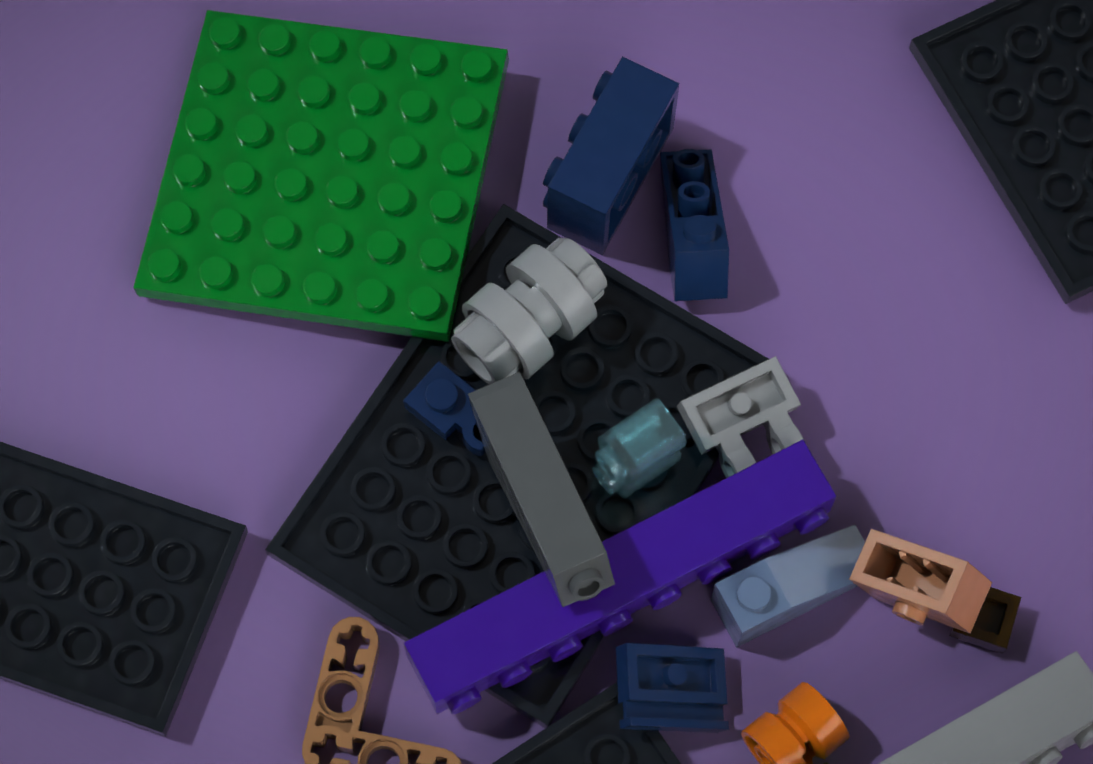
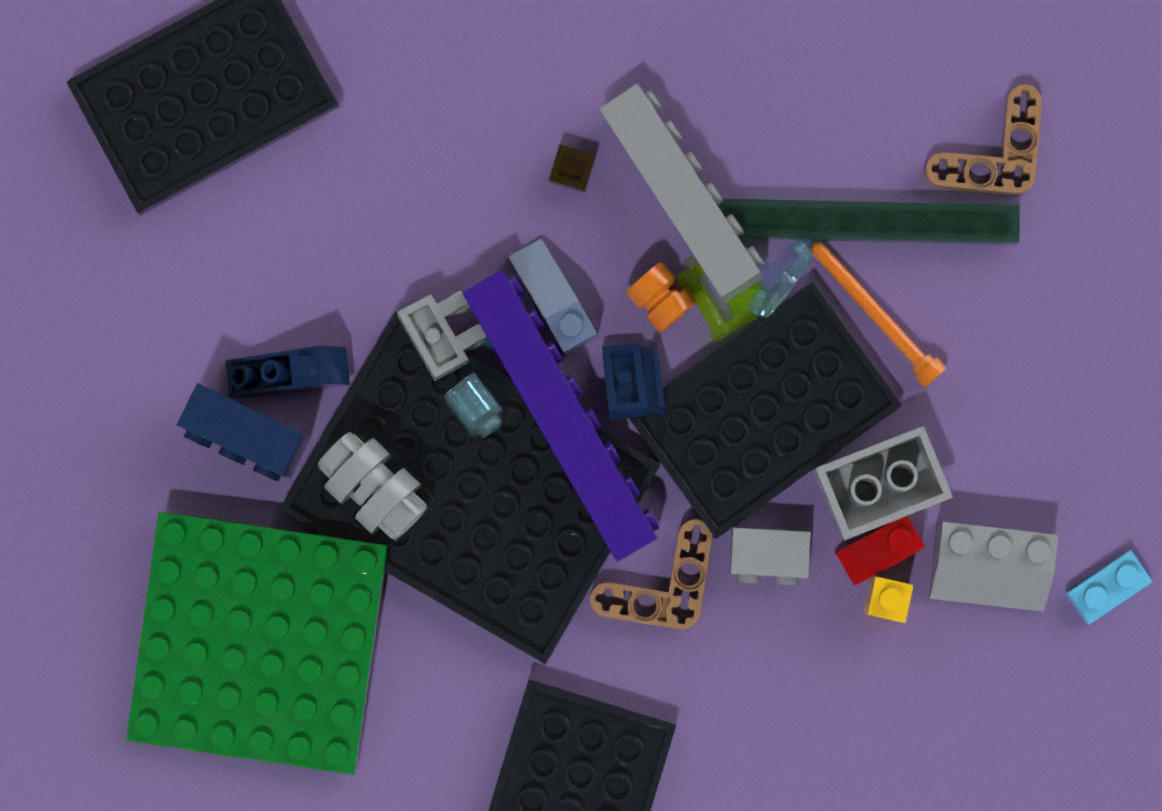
camera: 90 degrees left, 15 degrees up
(444, 405) = (436, 543): dark blue plate -> none
(540, 490) = (511, 471): dark grey slope -> none
(920, 581) = (556, 212): nougat brick -> none

